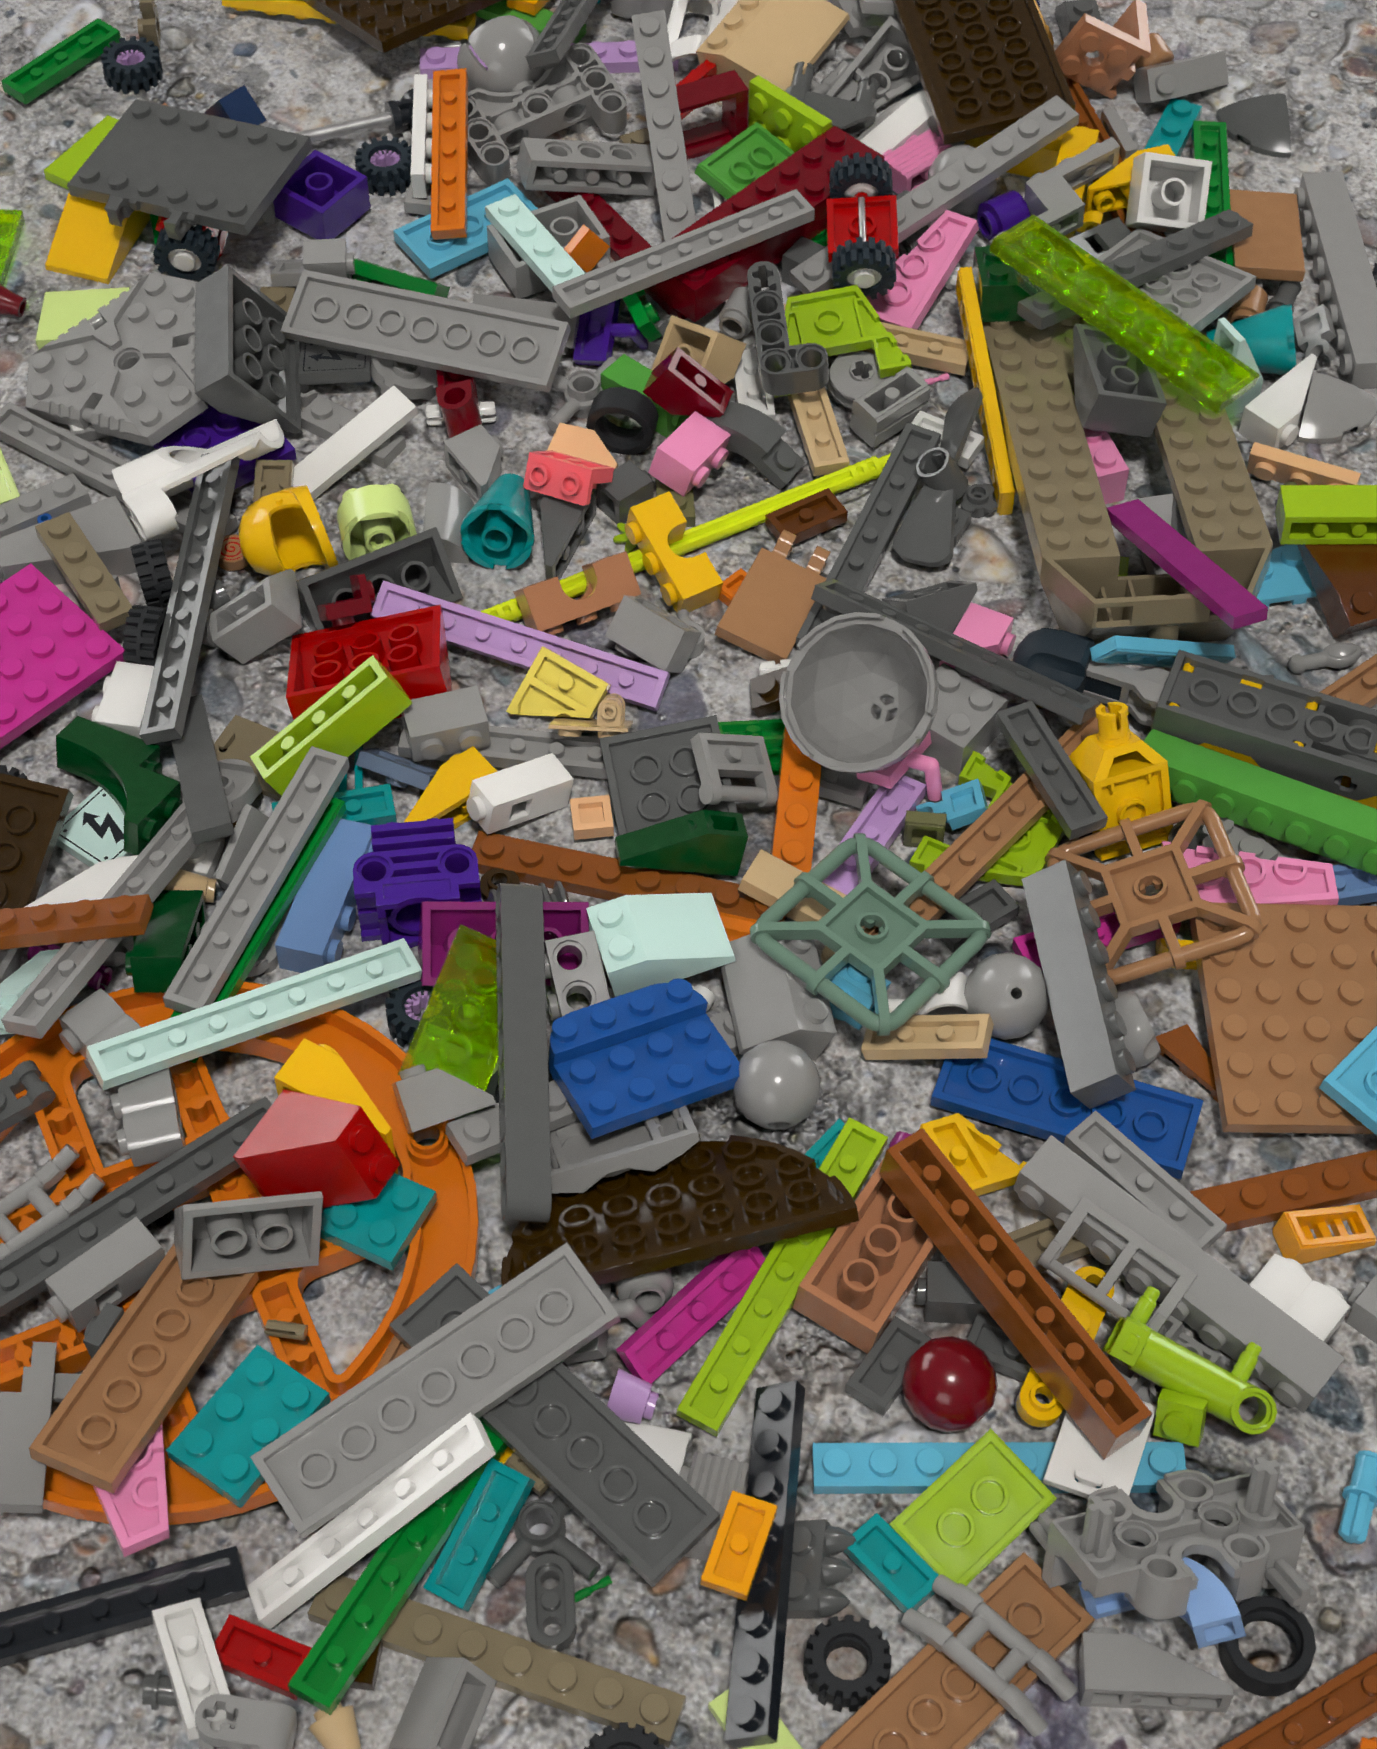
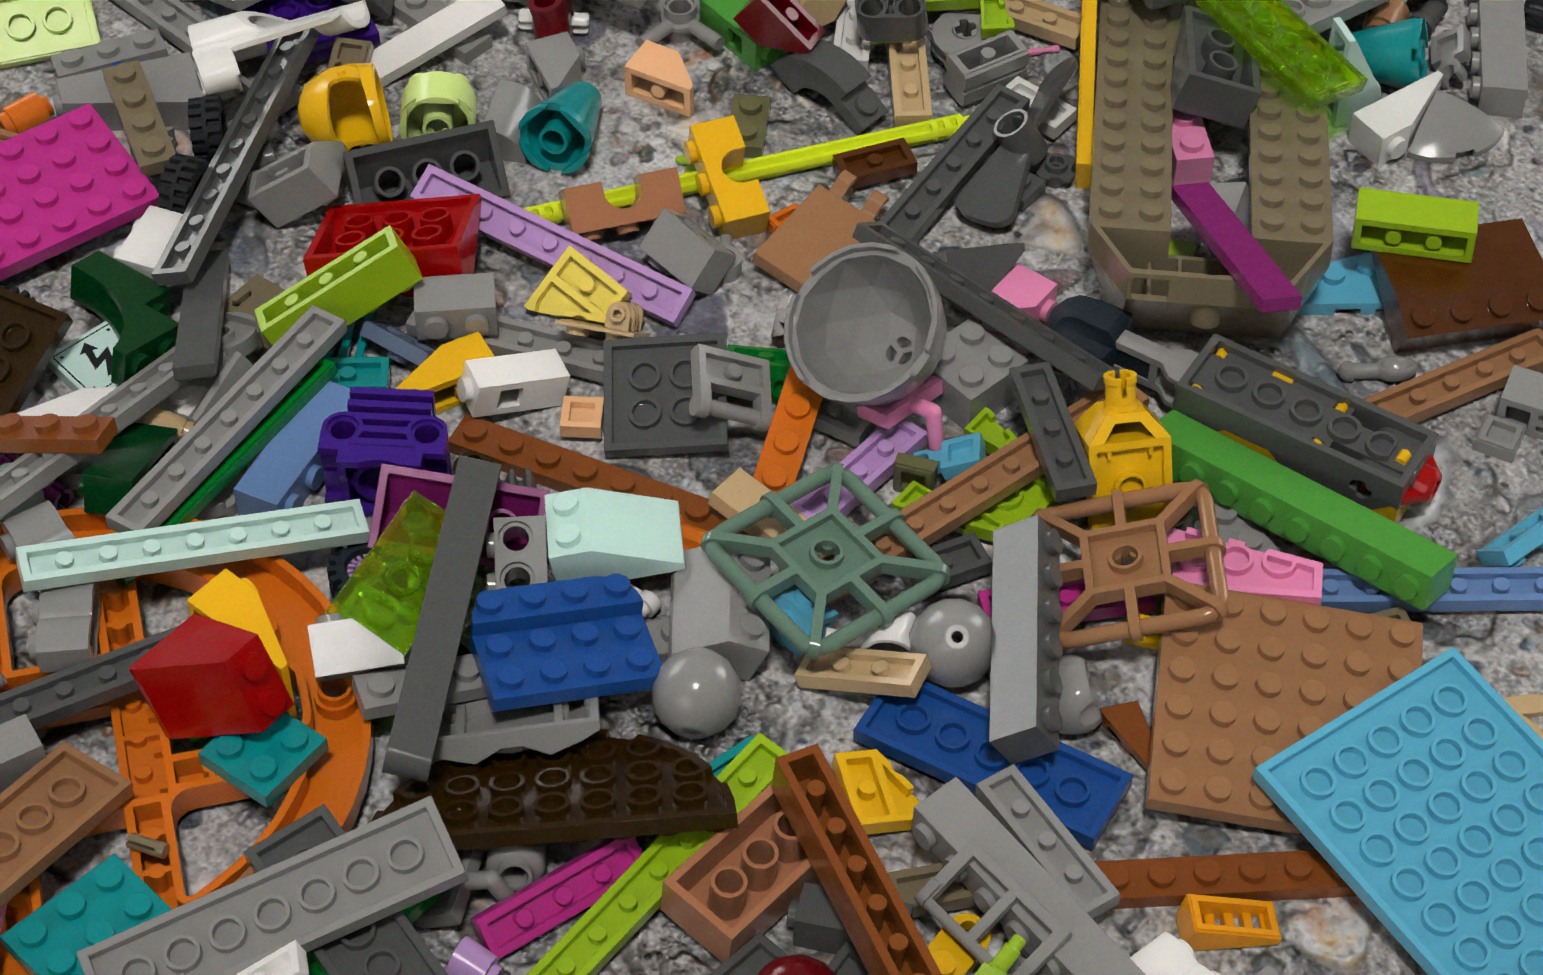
camera: 10 degrees right, 5 degrees down
(231, 556) = (288, 124): medium nougat tile -> none
(248, 1235) = (127, 744): light grey slope -> none
(343, 611) = (383, 188): dark red bracket -> none
(562, 530) = (628, 135): dark grey slope -> none
(564, 476) = (635, 89): coral bracket -> none
(627, 489) = (694, 108): dark grey brick -> none
(628, 403) = (721, 31): black tyre -> none
(690, 454) = (768, 85): bright pink brick -> none
(690, 843) = (672, 453): dark green slope -> none
(1155, 652) = (1190, 333): medium azure tile -> none
(1283, 466) = (1374, 173): light nougat plate -> none

